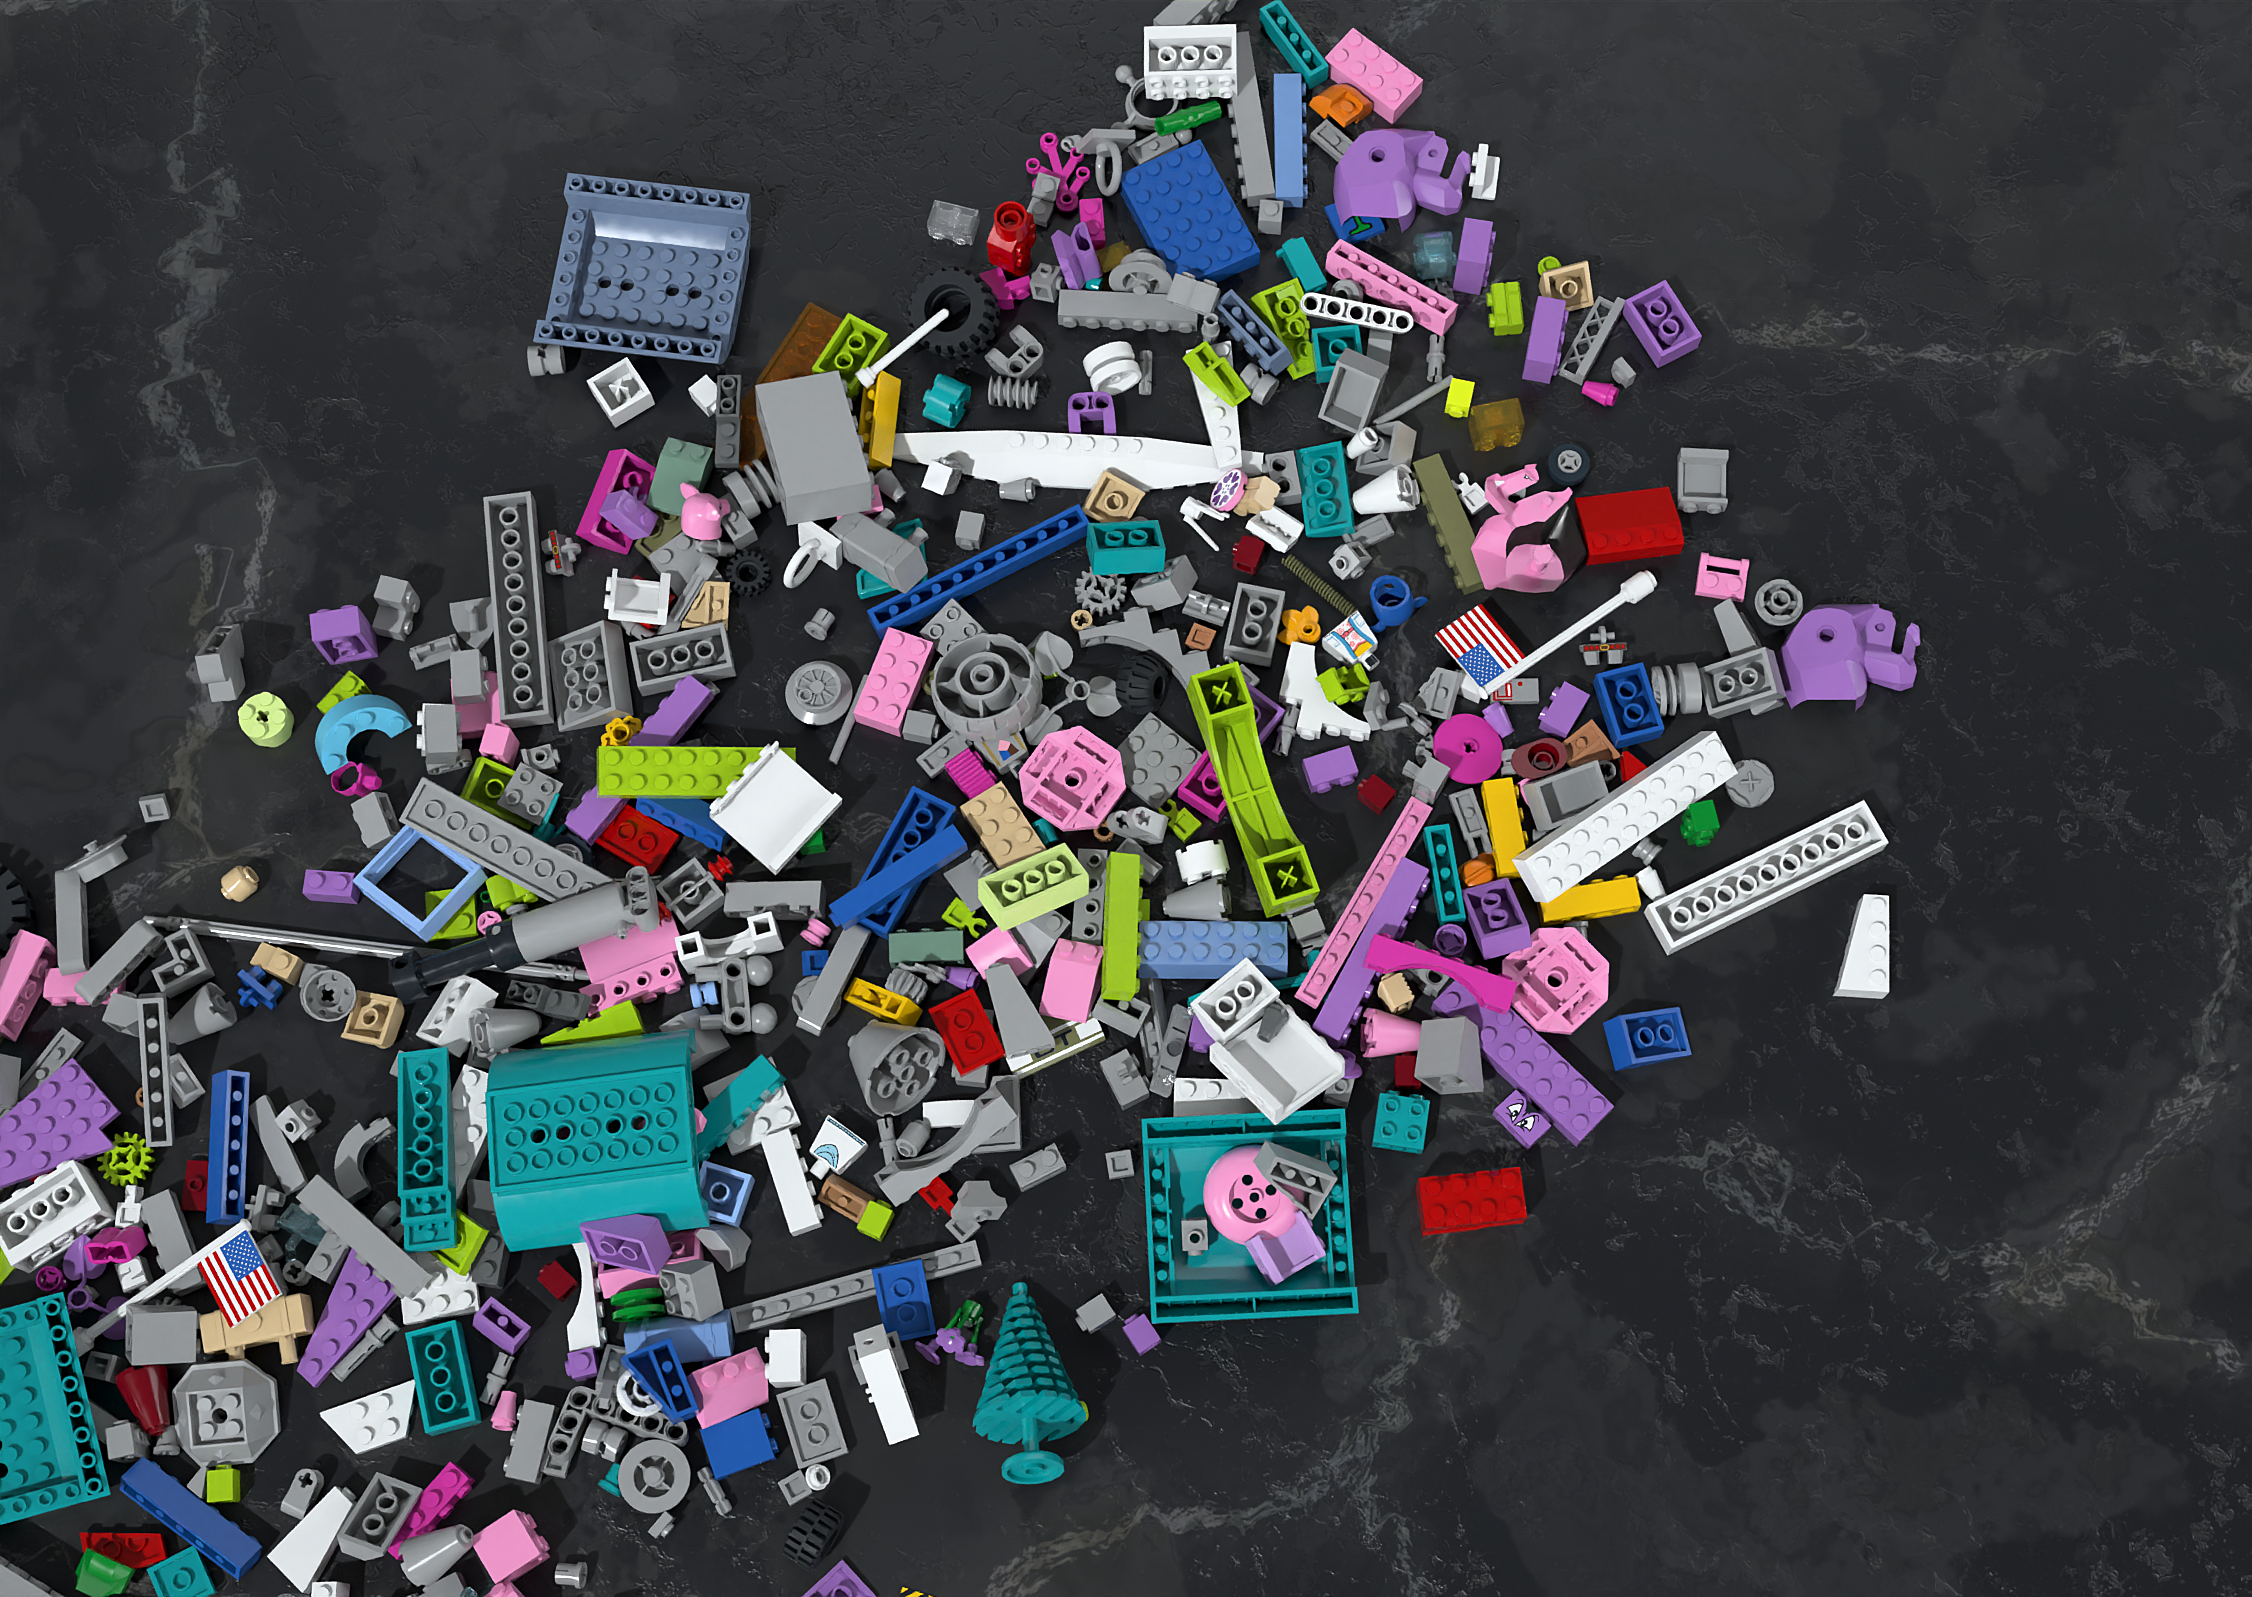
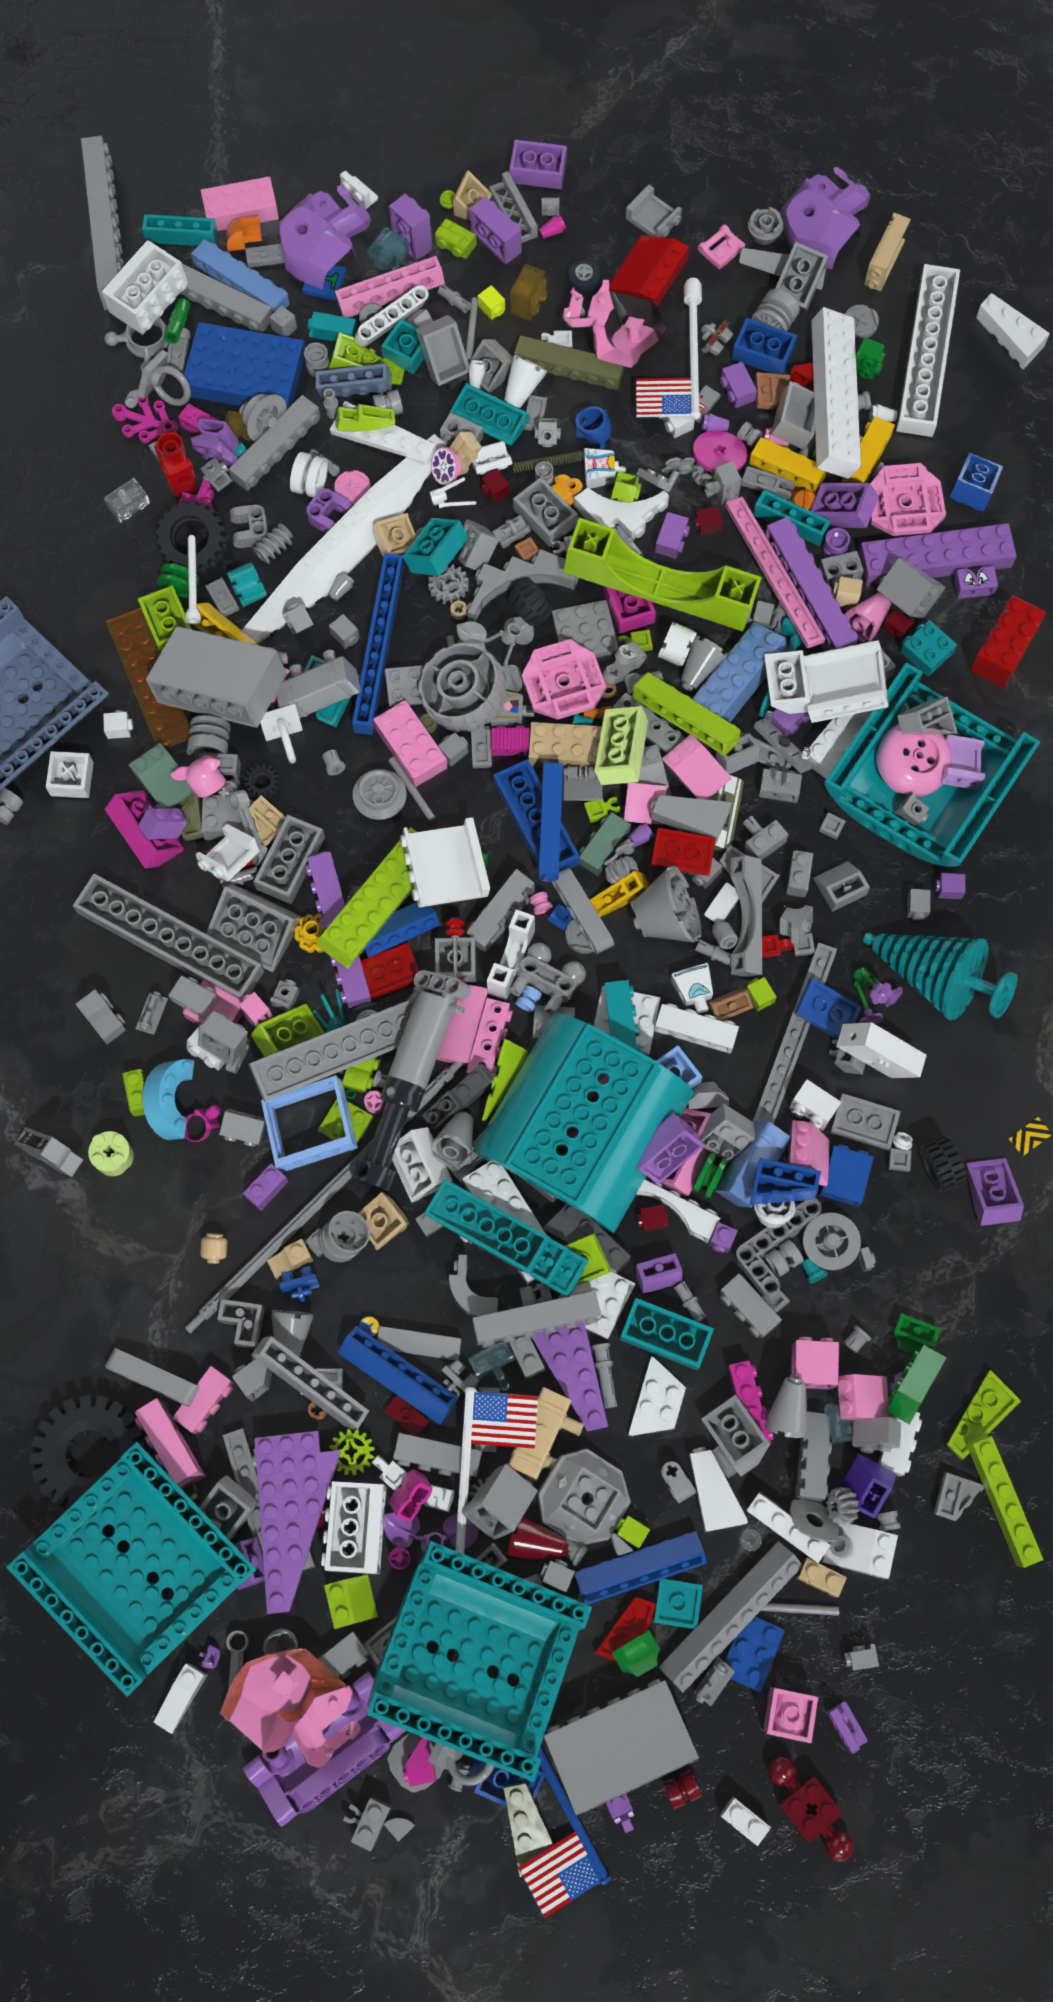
camera: 55 degrees left, 0 degrees up
(99, 859) = (121, 1328): light grey wheel -> none
(120, 961) = (210, 1362): light grey beam -> none
(154, 807) = (112, 1270): light grey plate -> none
(261, 1085) = (369, 1325): none -> tile
(291, 1269) = (517, 1380): light grey bush -> none
(298, 1121) = (416, 1316): light grey brick -> none
(343, 635) = (96, 1058): medium lavender brick -> none
(473, 621) = (149, 975): light grey shield -> none
(505, 1412) = (717, 1311): bright pink cone -> none
(529, 794) = (306, 1015): light grey hinge -> none
(563, 553) = (157, 893): light grey hips -> none
(609, 1374) = (744, 1222): light grey hinge -> none
(714, 1490) = (865, 1212): light grey axle -> none
(729, 421) = (149, 720): dark grey slope -> none
(898, 331) = (177, 576): none -> green wheel
(920, 382) = (222, 597): none -> light grey plate
(1045, 187) = (150, 431): light grey plate -> none
(1048, 1105) = (764, 839): none -> light grey brick
(1056, 1219) = (842, 885): none -> light grey slope
(1070, 840) = (596, 713): none -> orange pin
(1139, 418) = (352, 485): none -> bright pink tile
(1193, 294) = (302, 393): light grey brick -> none
(1252, 278) = (316, 358): none -> light grey wheel
(1273, 1019) = (816, 669): dark grey cone -> none
(1300, 587) = (544, 470): none -> light grey wheel
(1438, 694) = (674, 440): light grey wing -> none
(1489, 990) = (890, 535): dark pink arch -> none
(1539, 758) = (760, 414): dark red piece -> none
(1850, 751) = (887, 252): none -> tan door

